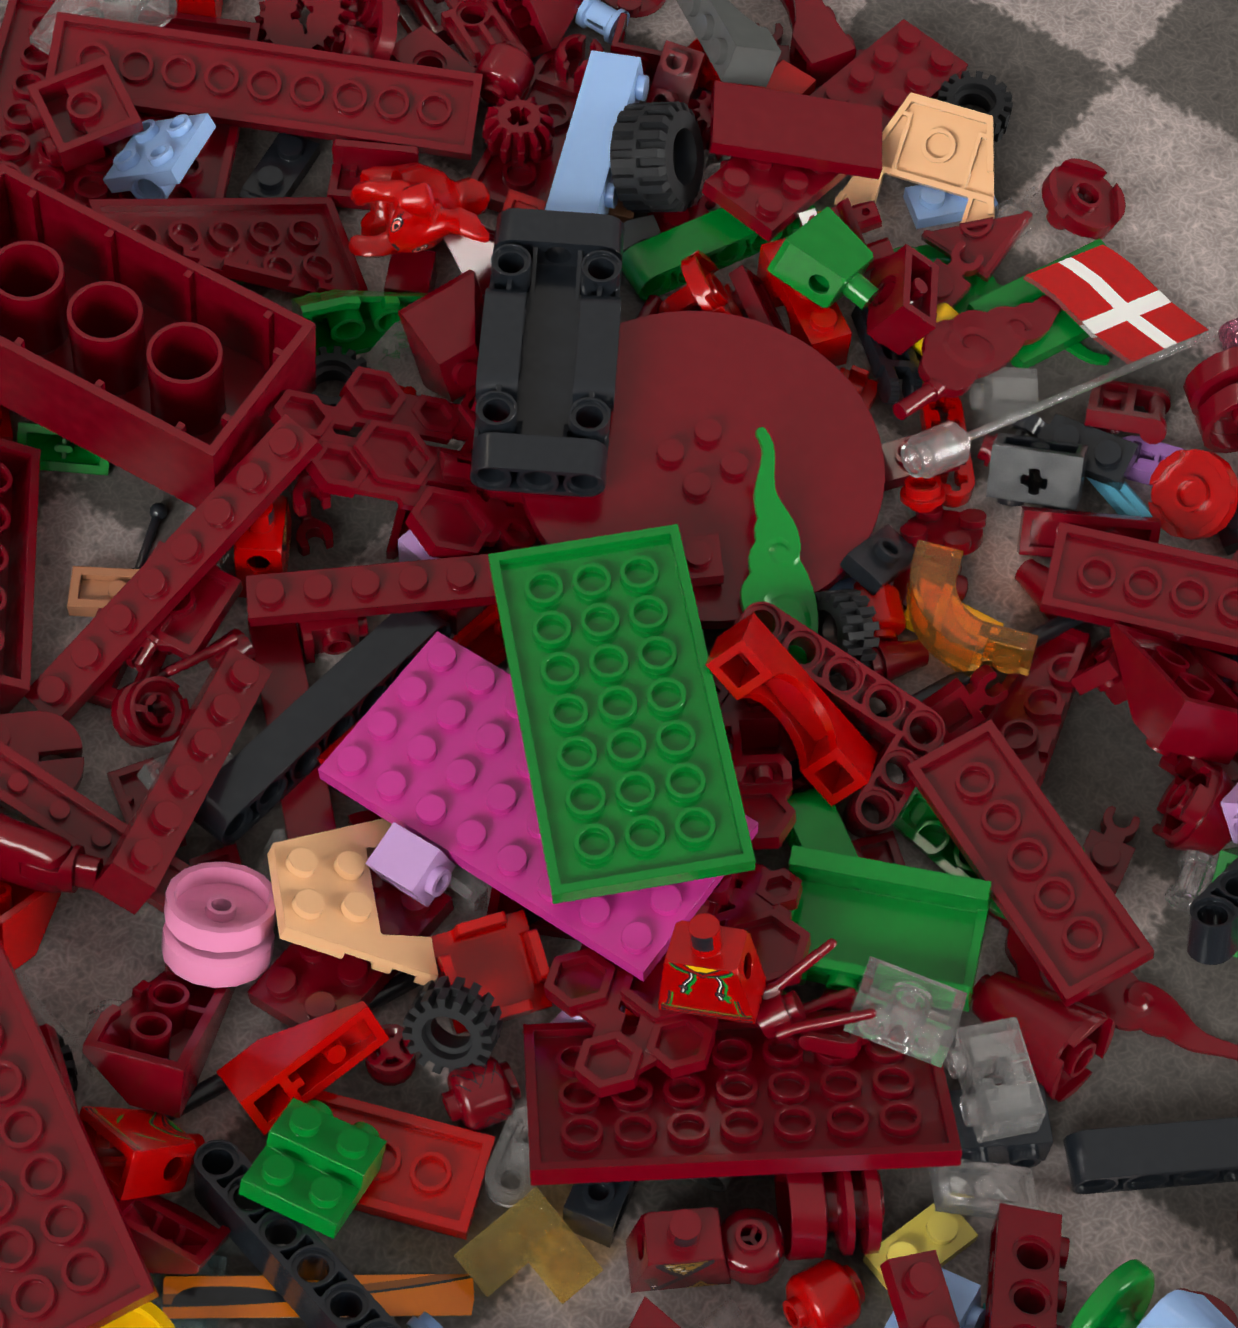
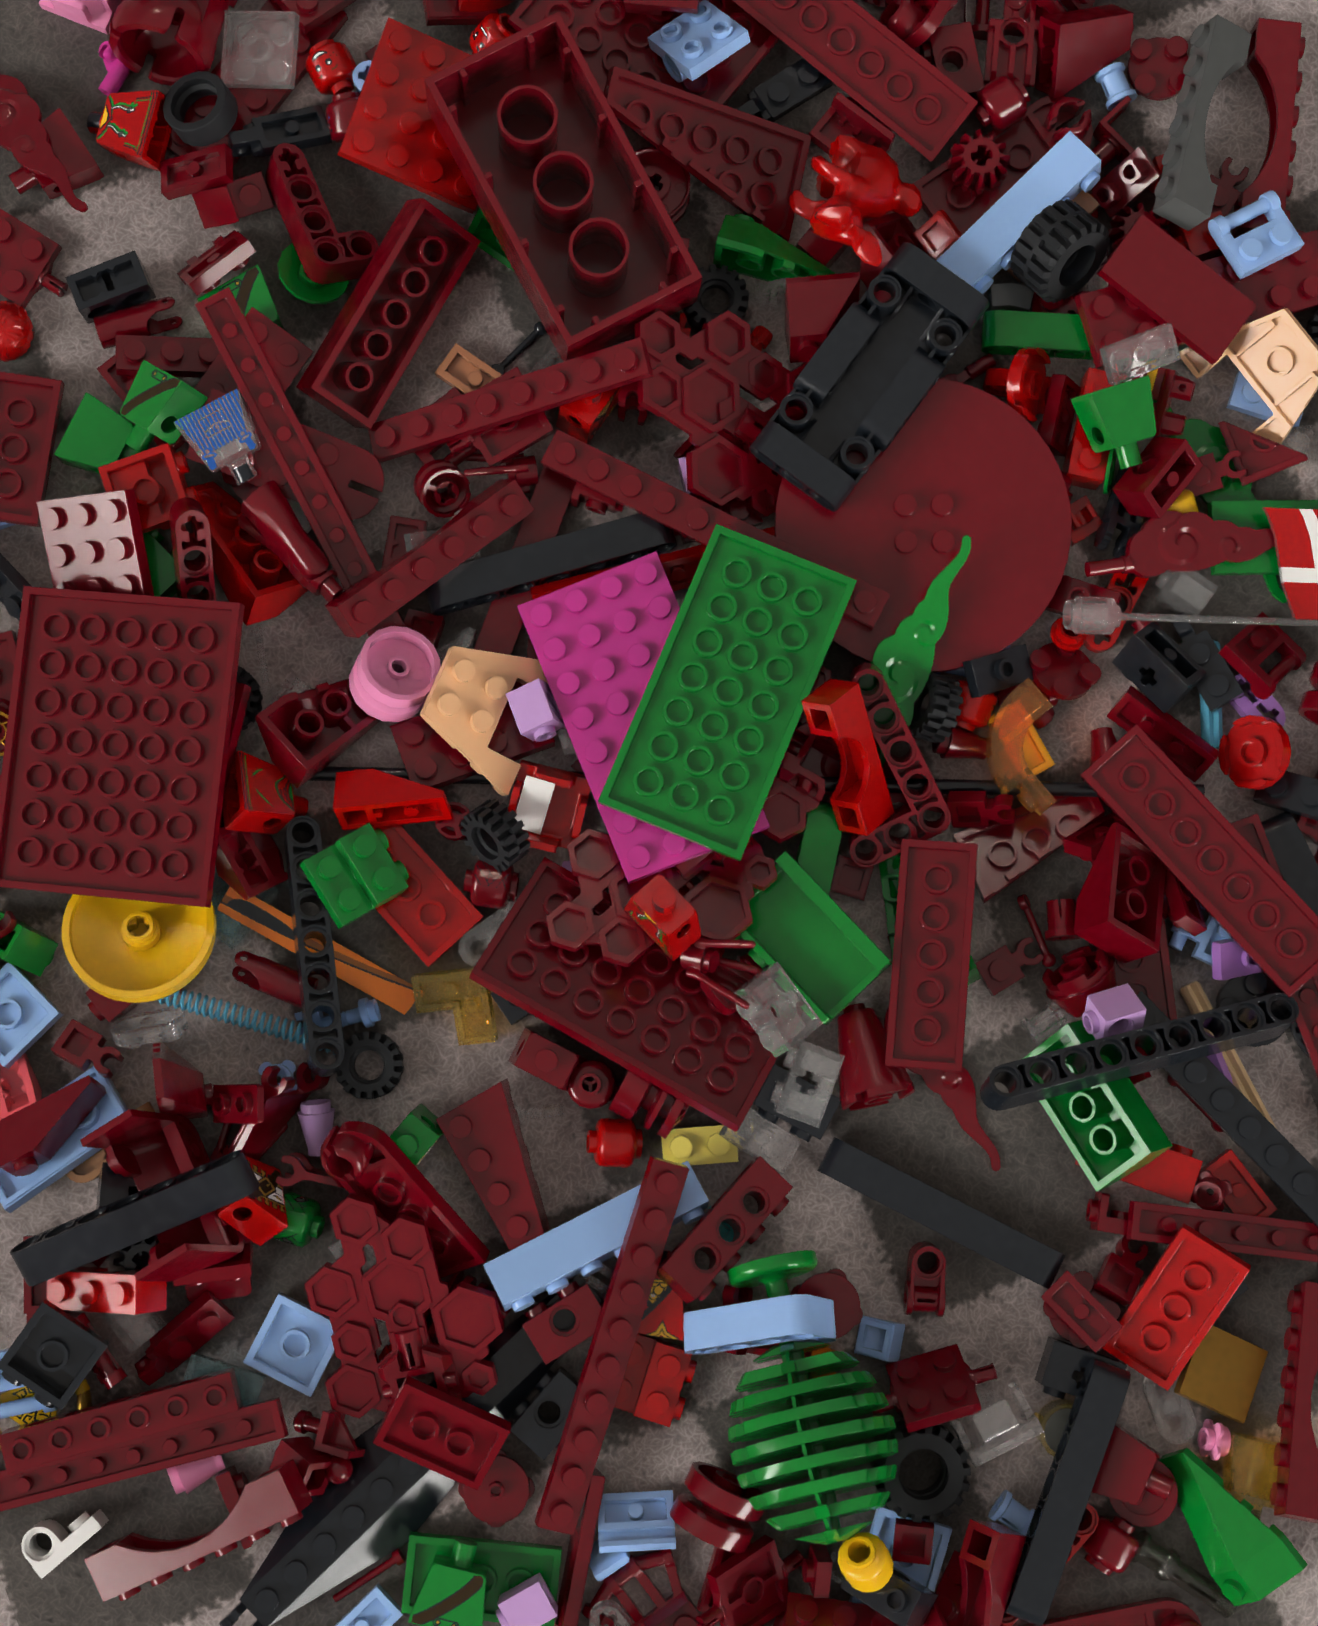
camera: 25 degrees right, 25 degrees up
(473, 959) = (534, 803): none -> white sticker
(804, 195) = (1140, 354): none -> clear plate
(842, 66) = (1261, 245): none -> light blue plate
(855, 344) = (1110, 471): none -> green piece
(1130, 770) = (1060, 920): none -> dark red bush
(1147, 819) = (1049, 959): none -> dark red hinge

